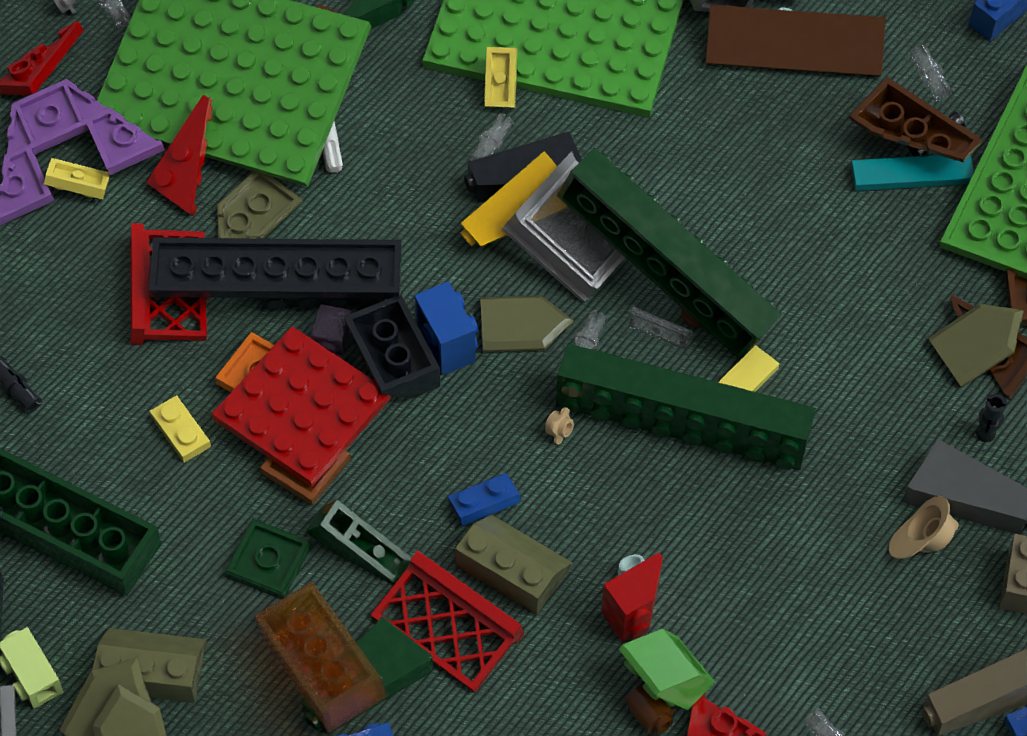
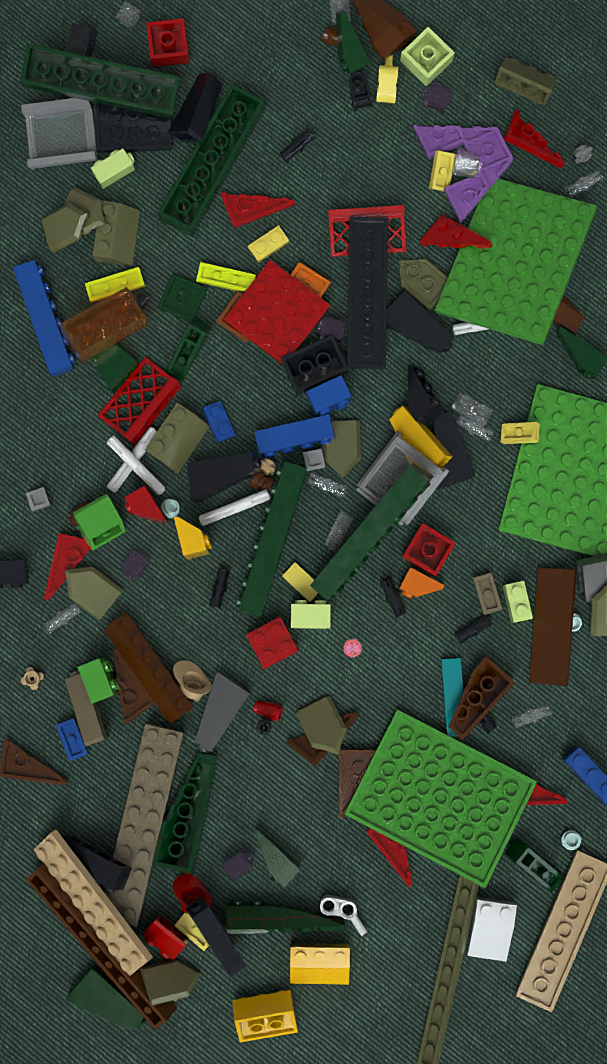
camera: 90 degrees right, 25 degrees up
(70, 136) = (466, 163): none -> clear slope
(117, 458) = (245, 209): none -> red wing
(236, 490) = (224, 277): none -> neon yellow plate
(241, 663) = (109, 285): none -> neon yellow plate
(328, 207) = (415, 323): none -> black slope
(452, 199) = (421, 400): none -> black slope
(462, 142) = (472, 409): none -> clear plate
(508, 380) = (295, 435): none -> blue brick
(545, 356) = (314, 459): none -> light grey plate
(551, 632) = (138, 452): none -> white axle
(560, 620) = (136, 465): none -> white axle
(576, 488) = (220, 473): none -> black slope
(585, 434) = (261, 482): none -> reddish brown wheel
(630, 468) = (235, 507): none -> white axle
(692, 192) = (428, 550): none -> red brick
(692, 518) = (192, 539): none -> yellow slope
(734, 622) = (134, 565): none -> clear purple brick
(741, 214) = (418, 584): none -> orange slope
(750, 125) = (487, 593): none -> dark tan plate
(761, 85) = (517, 602): none -> yellowish green brick
(764, 250) = (393, 597): none -> black pin
(782, 691) = (92, 590): none -> olive tile
(786, 501) = (219, 588): none -> black pin
(803, 353) = (310, 615): none -> yellowish green brick
(806, 145) = (473, 629): none -> black axle
(848, 307) = (352, 648): none -> clear tile
(851, 413) = (272, 643): none -> red brick
(909, 595) = (148, 668): none -> reddish brown brick
(938, 662) = (99, 679): none -> bright green slope
(952, 625) = (133, 695): none -> reddish brown wing
(960, 420) = (268, 710): none -> red cone

